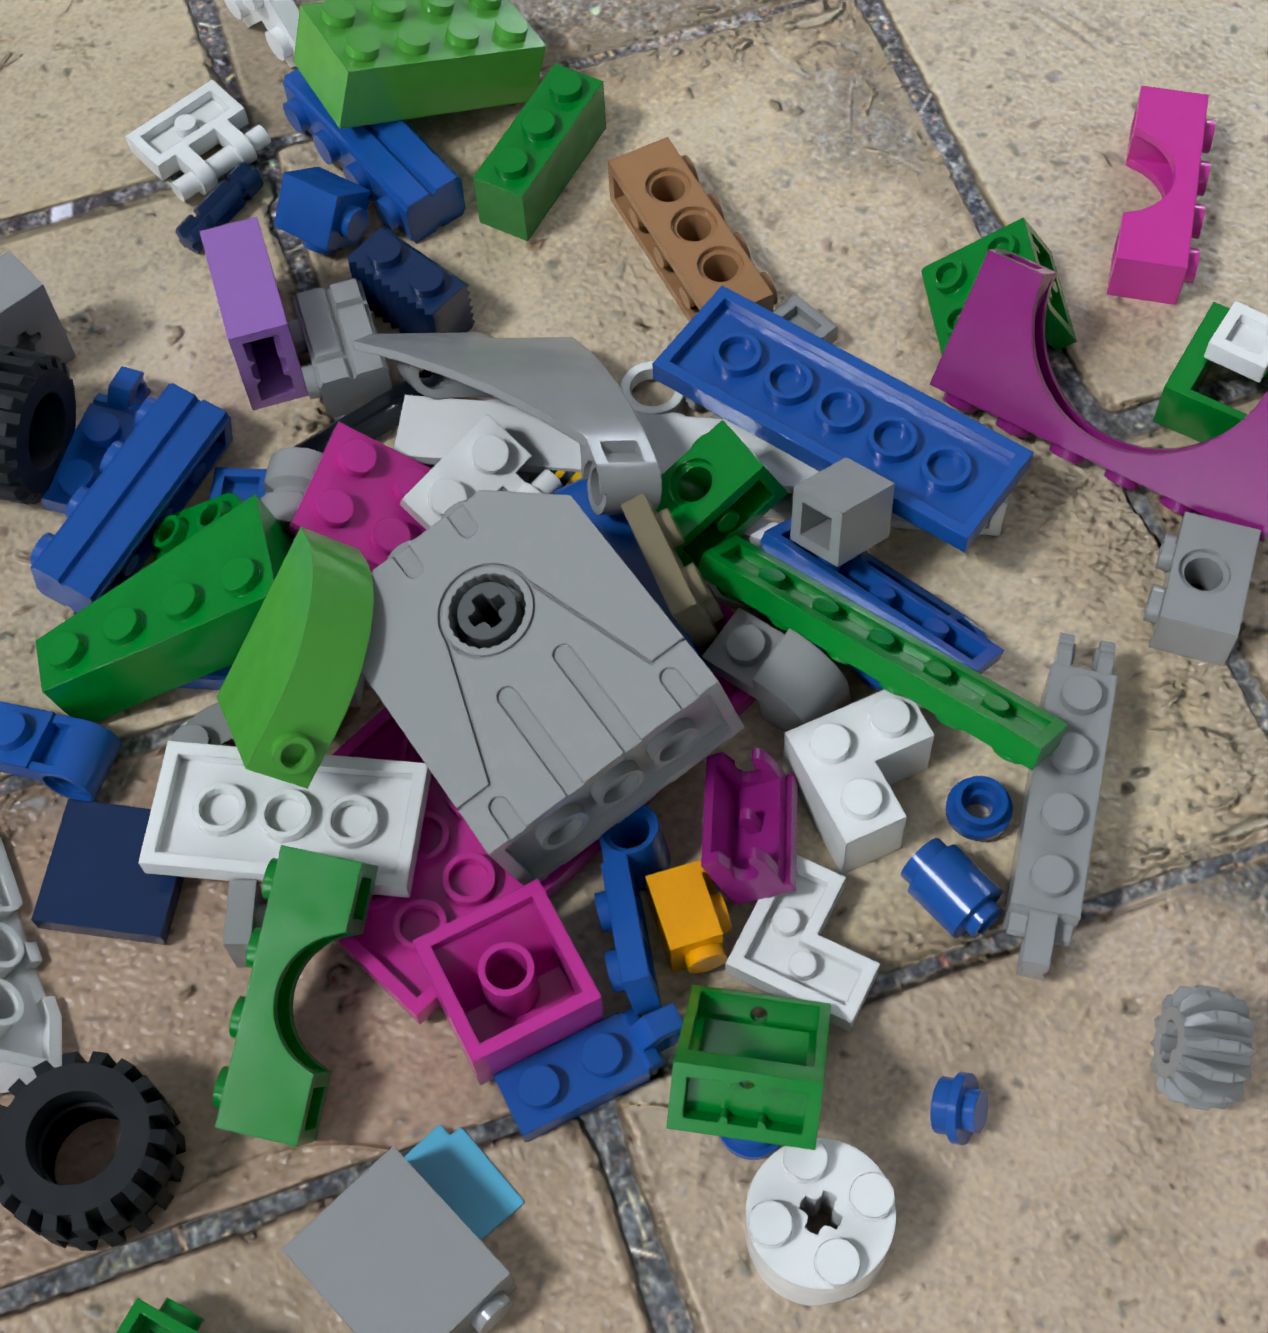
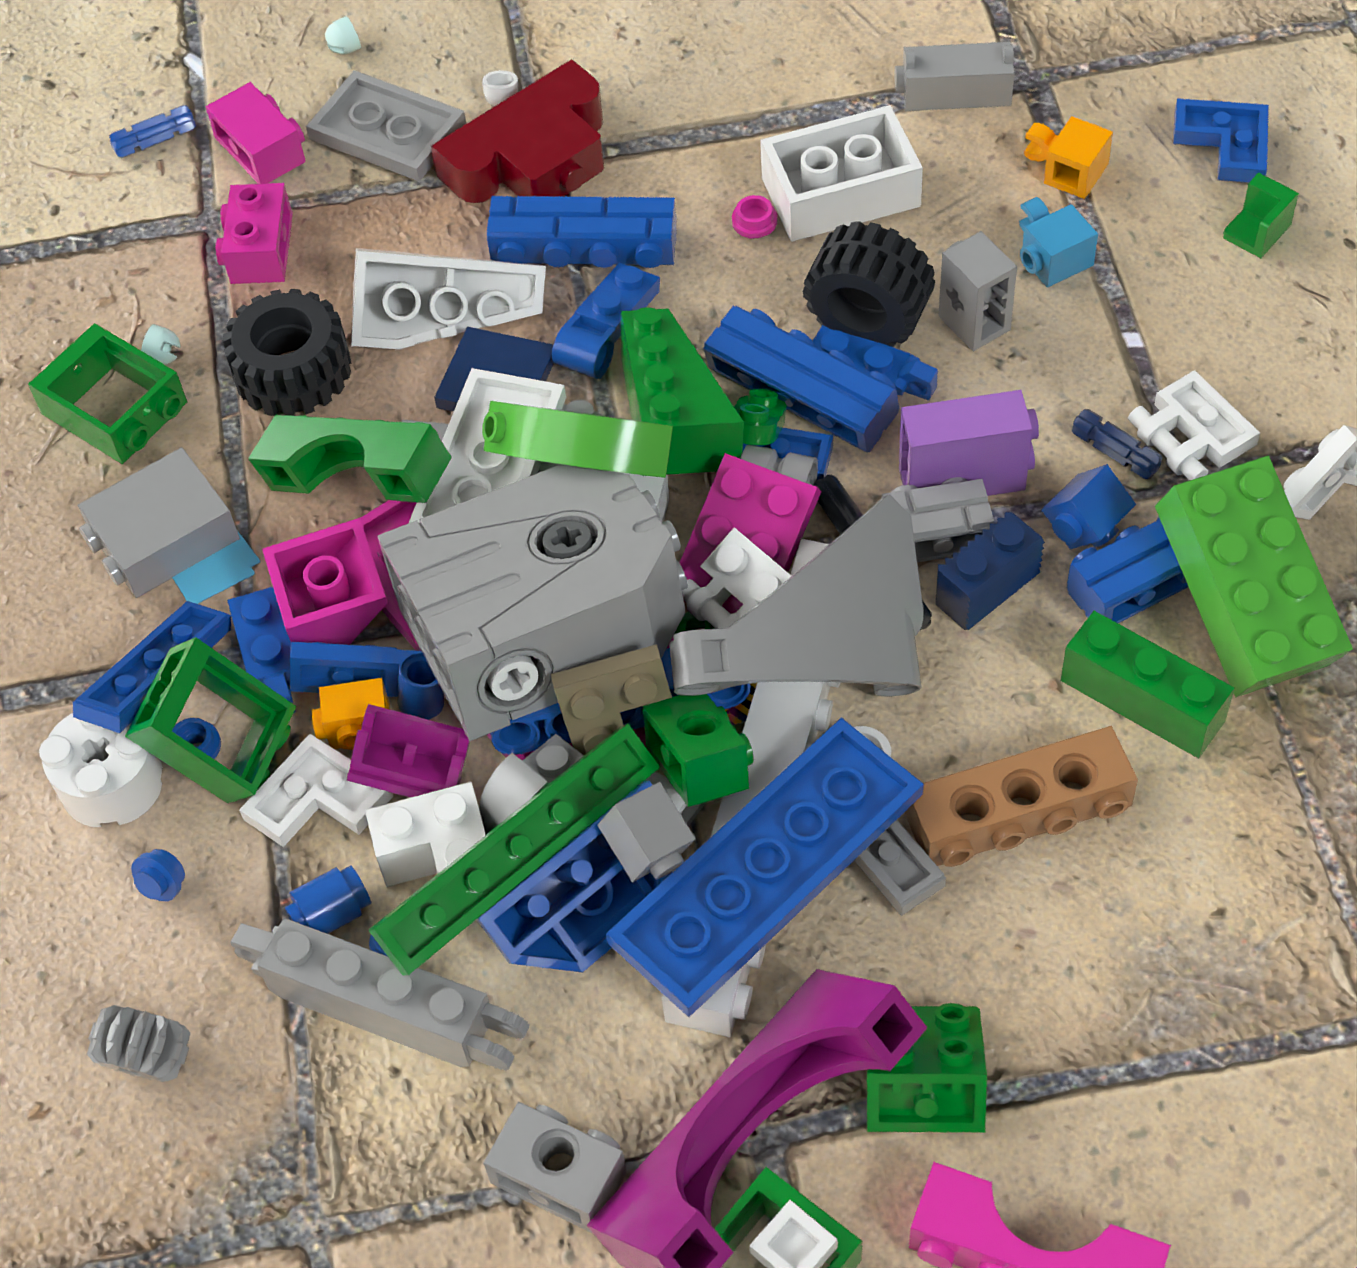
camera: 100 degrees right, 5 degrees down
(671, 1179) = (121, 690): none -> blue tile

